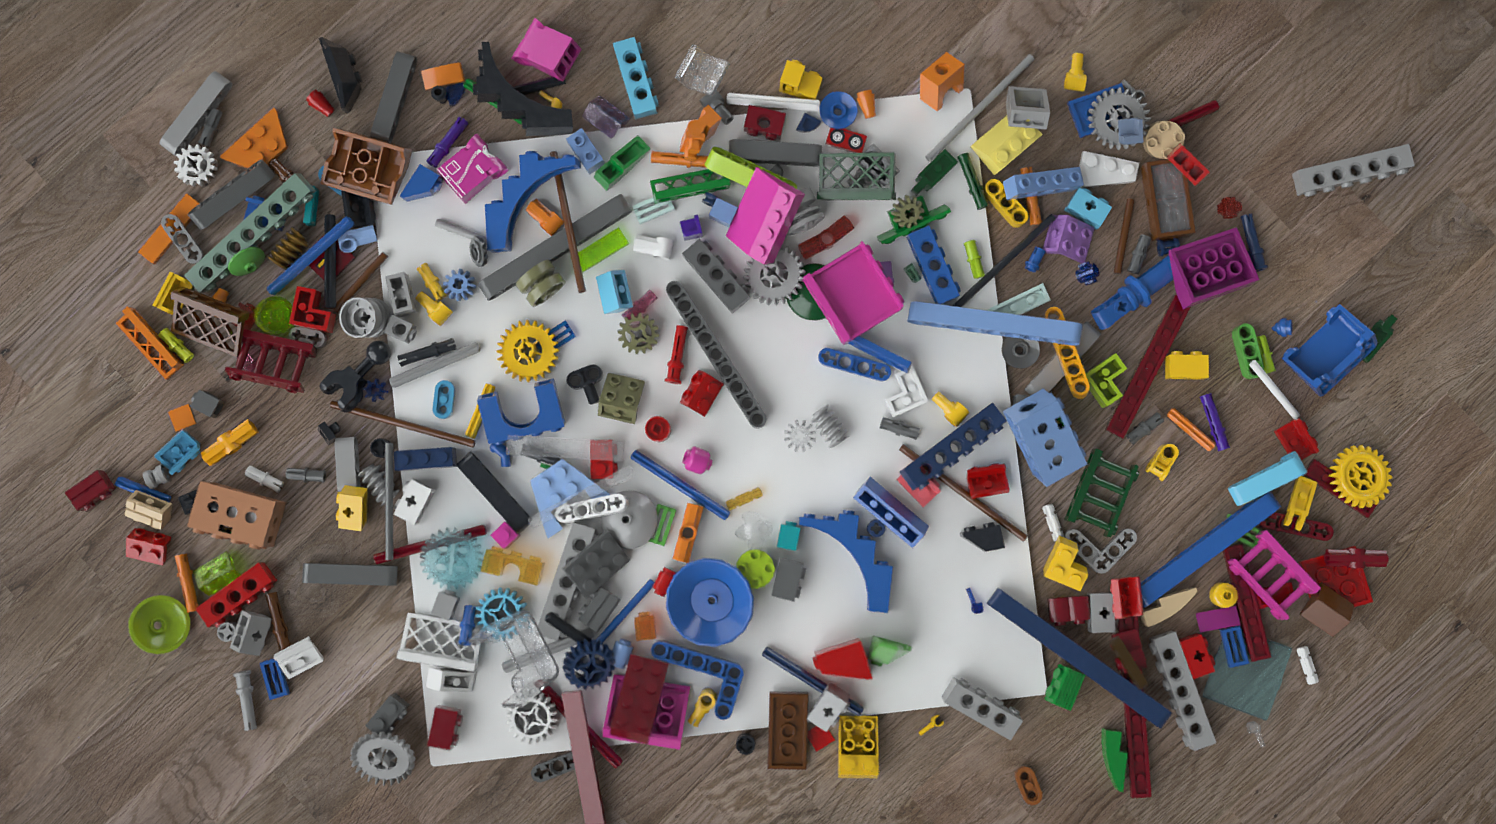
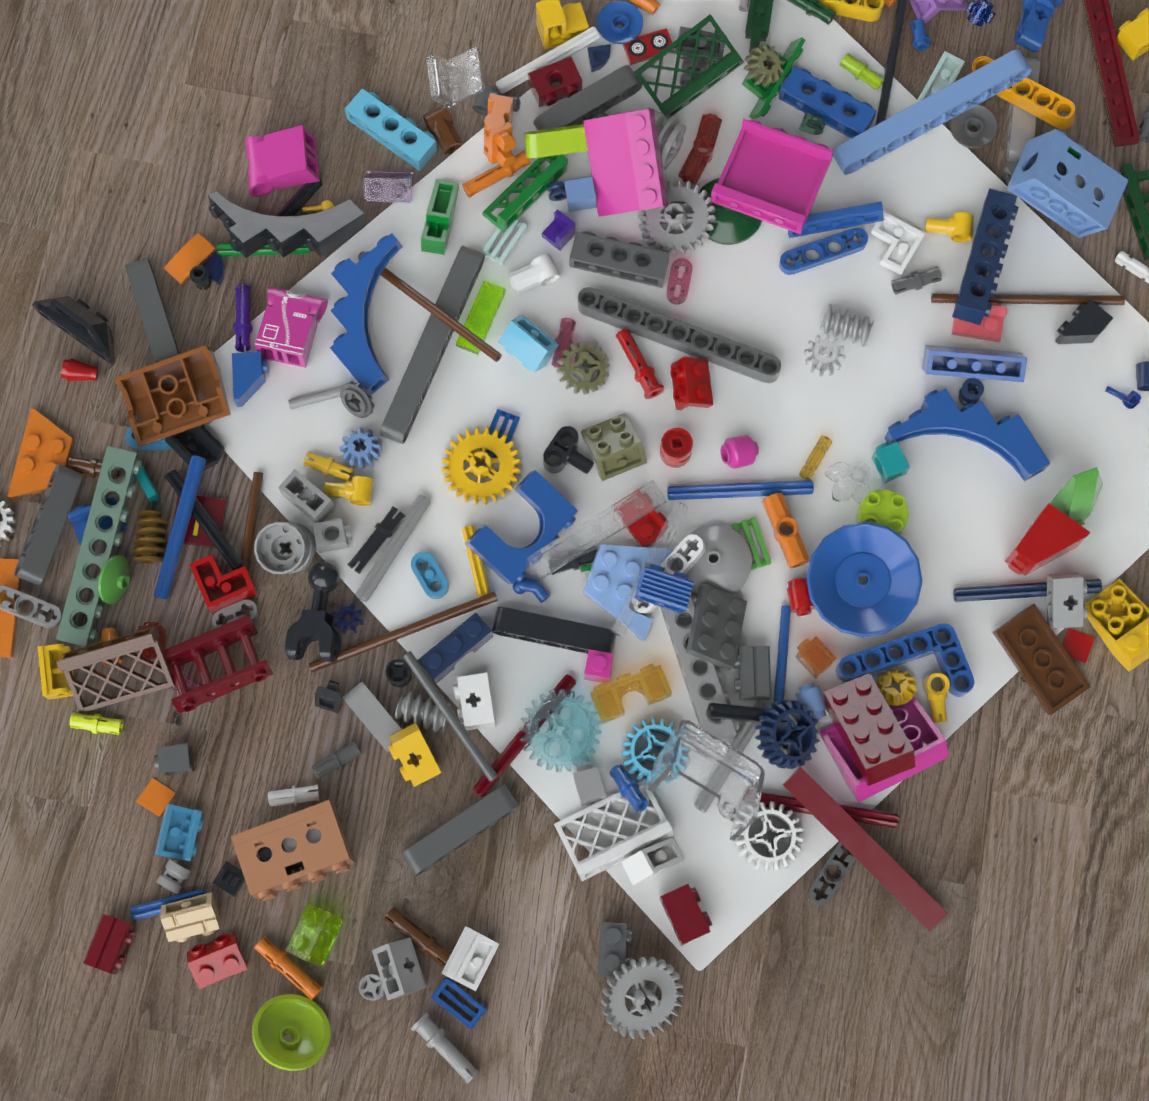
camera: 35 degrees left, 10 degrees down
(153, 340) = (67, 732): orange fence -> none
(209, 609) = (358, 900): red brick -> none
(229, 442) = (228, 784): light orange piece -> none
(273, 315) = (183, 614): clear neon green cylinder -> none
(357, 237) = (217, 476): light blue piece -> none
(540, 283) = (446, 384): olive wheel -> none
(548, 220) = (406, 322): orange piece -> none
(576, 518) = (664, 588): none -> blue brick
(585, 151) = (404, 228): medium blue brick -> none
(669, 98) = (441, 125): none -> reddish brown piece
(686, 689) = (891, 695): none -> yellow gear
(742, 314) = (684, 281): none -> clear pink beam
(743, 746) = (1012, 700): black wheel -> none
(788, 579) = (924, 503): dark grey brick -> none
(987, 480) = (1043, 269): red bracket -> none
(1101, 380) = (1088, 103): lime brick -> none

